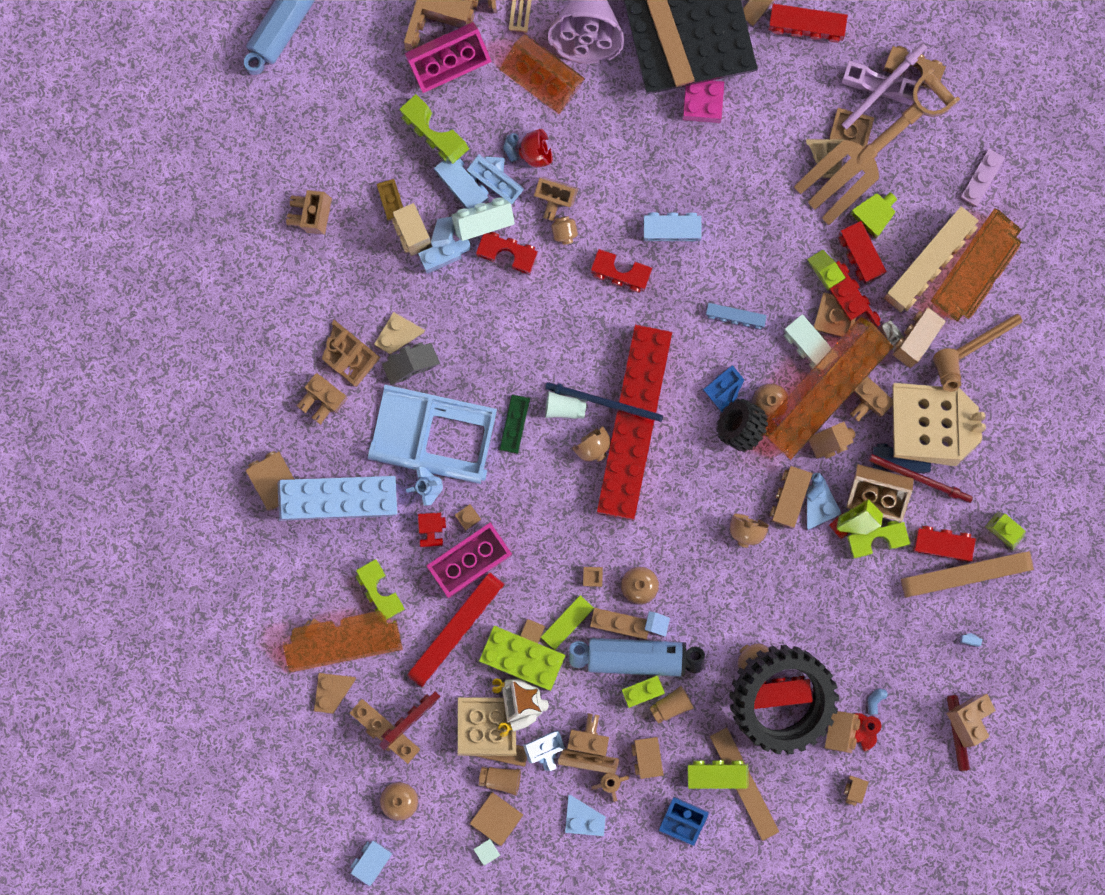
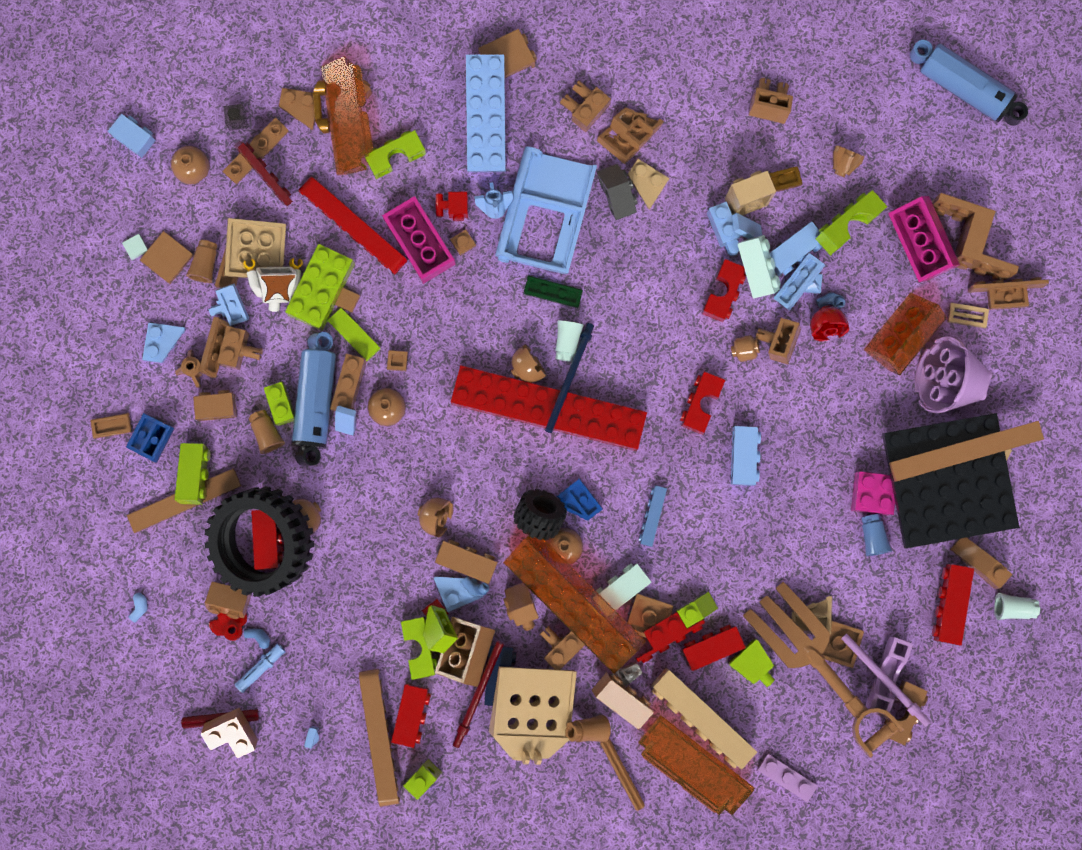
camera: 90 degrees right, 0 degrees up
(316, 670) = (320, 90): none -> pearl gold bar
(348, 756) = (235, 117): none -> clear smoke brick
(369, 136) = (845, 161): none -> medium nougat brick
(672, 863) = (111, 426): none -> medium nougat tile
(744, 99) = (875, 536): none -> medium blue plant
(853, 820) = (140, 607): none -> light blue arm
(855, 790) = (169, 611): medium nougat brick -> none
(906, 696) = (267, 661): none -> light blue pin

